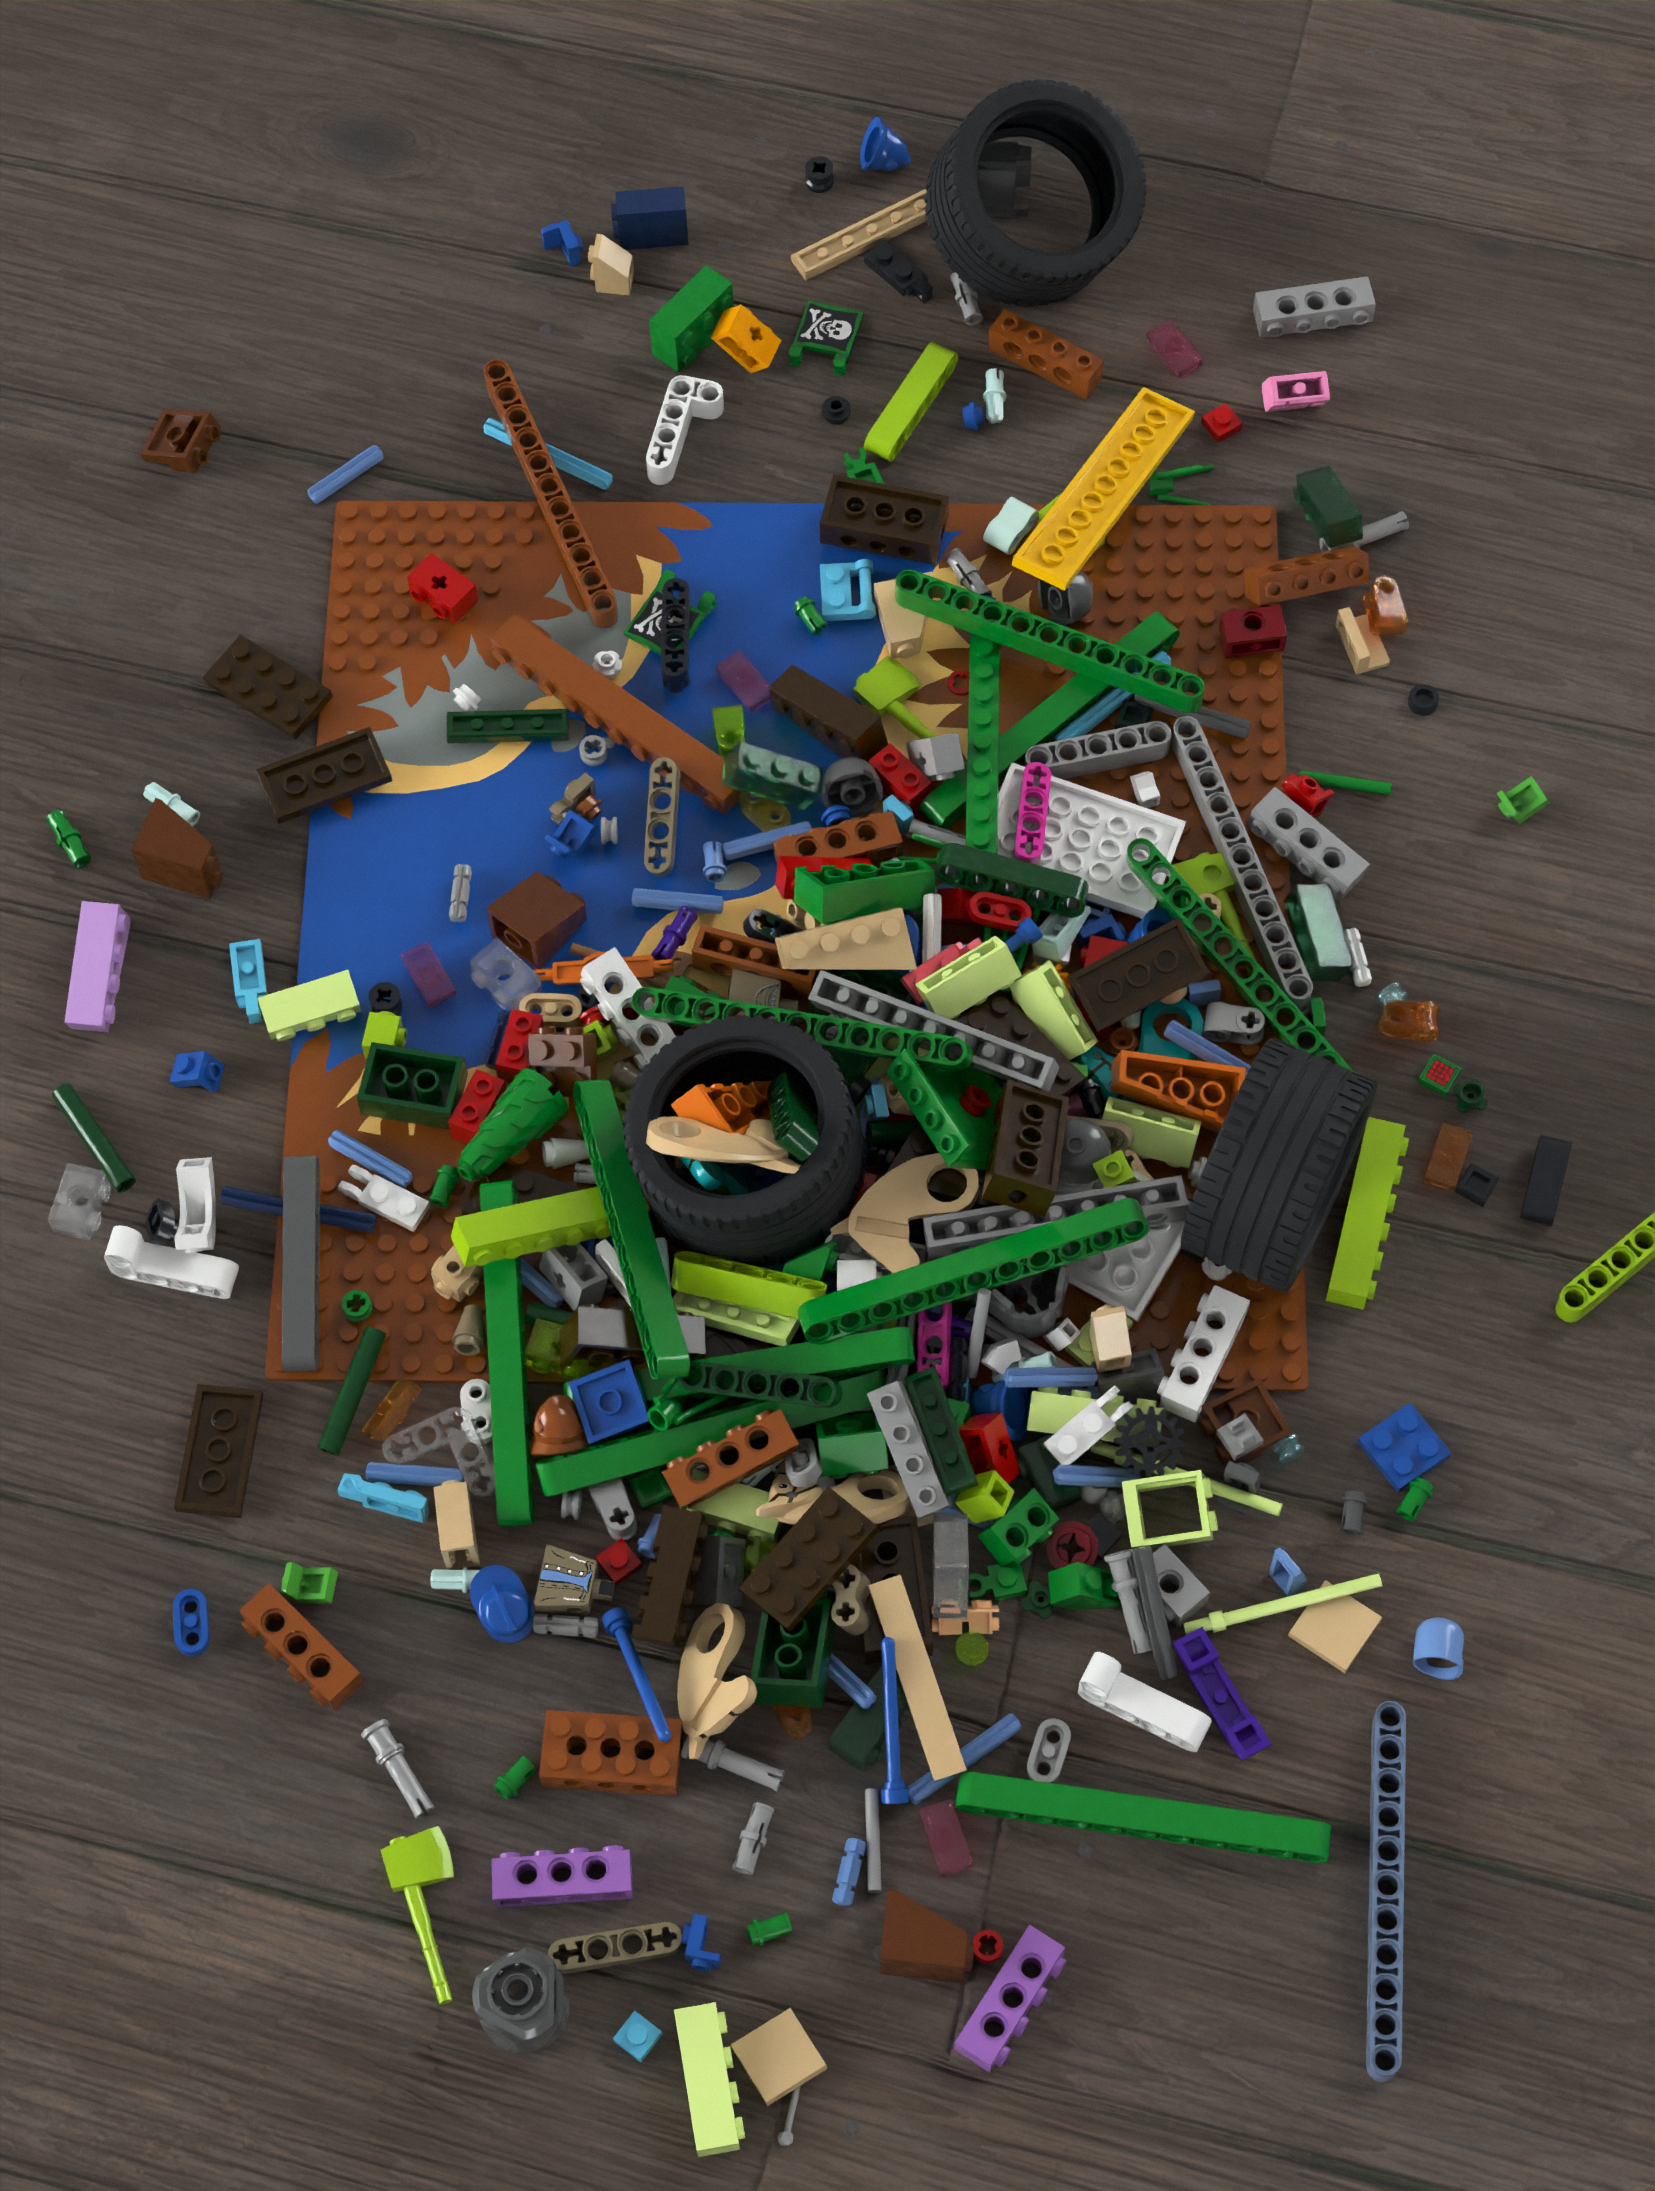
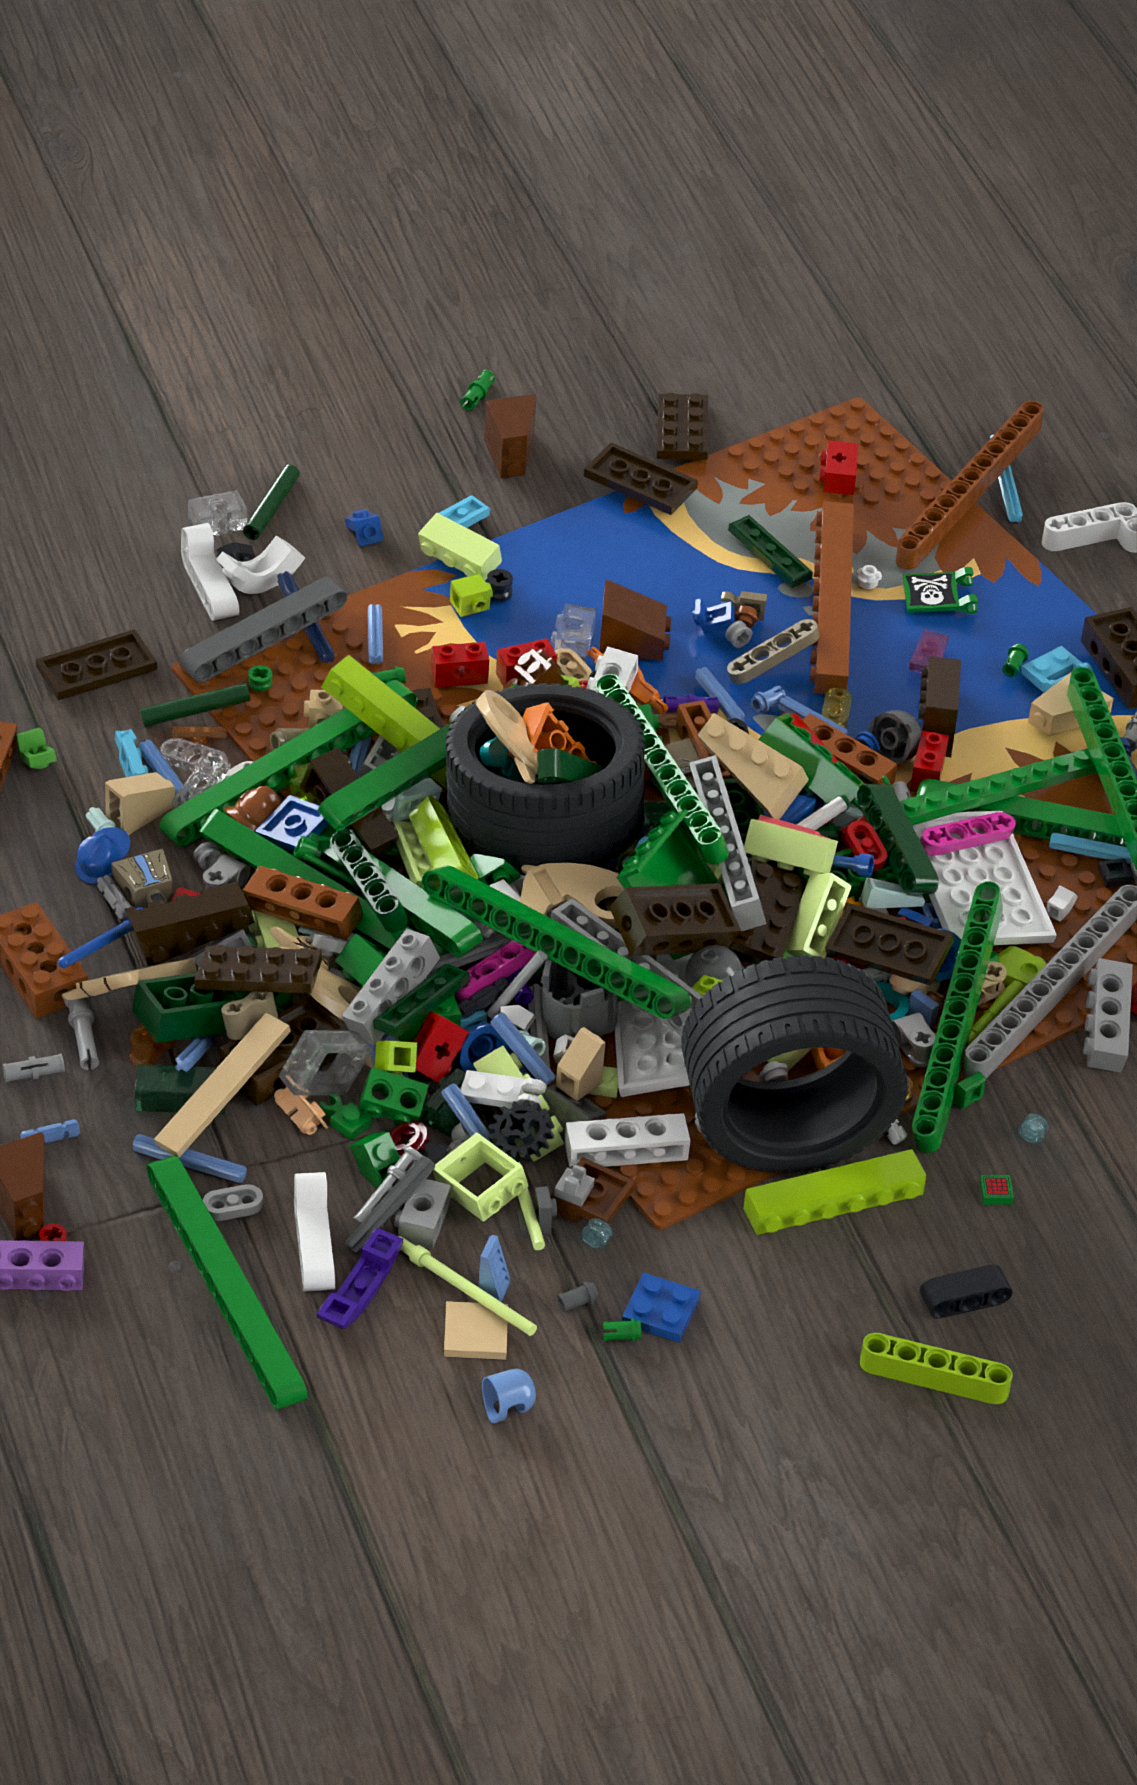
camera: 50 degrees right, 20 degrees down
(97, 966) = (396, 439): lavender wedge -> none
(173, 801) = (550, 425): light aqua axle -> none
(182, 439) = (825, 301): reddish brown plate -> none
(345, 474) = (883, 390): medium blue axle -> none
(386, 1198) = (353, 647): white hinge -> none
(411, 1085) = (443, 616): dark green brick -> none
(428, 974) = (540, 597): plate -> none
(460, 893) = (633, 580): light grey axle -> none
(466, 698) = (768, 517): white plate -> none
(520, 1116) = (454, 677): green cone -> none
(594, 758) = (794, 600): light grey bush -> none
(675, 674) = (901, 602): black beam -> none
(728, 727) = (878, 660): clear neon green piece -> none
(772, 775) = (858, 684): clear green brick -> none
(873, 1840) = (85, 1137): light grey bar -> none
(884, 691) = (997, 727): lime piece -> none
(894, 1788) = (134, 1125): blue piece -> none
(902, 813) = (903, 772): medium azure plate -> none
(937, 756) = (962, 762): light grey brick -> none
(946, 1837) = (119, 1177): clear pink plate -> none
(971, 1648) = (279, 1124): clear neon green plate -> none
(1031, 1604) = (344, 1141): dark green plate -> none
(1109, 743) = (1065, 861): light grey beam -> none
(1318, 931) = (1043, 1057): brick -> none
(1361, 973) = (1048, 1094): white axle -> none
(1386, 1905) = (280, 1453): sand blue beam -> none
(1413, 1020) = (1024, 1146): clear orange piece -> none
(1448, 1156) = (932, 1226): clear orange plate -> none
(1472, 1088) = (996, 1215): dark green plate -> none
(1477, 1185) = (924, 1255): black tile -> none

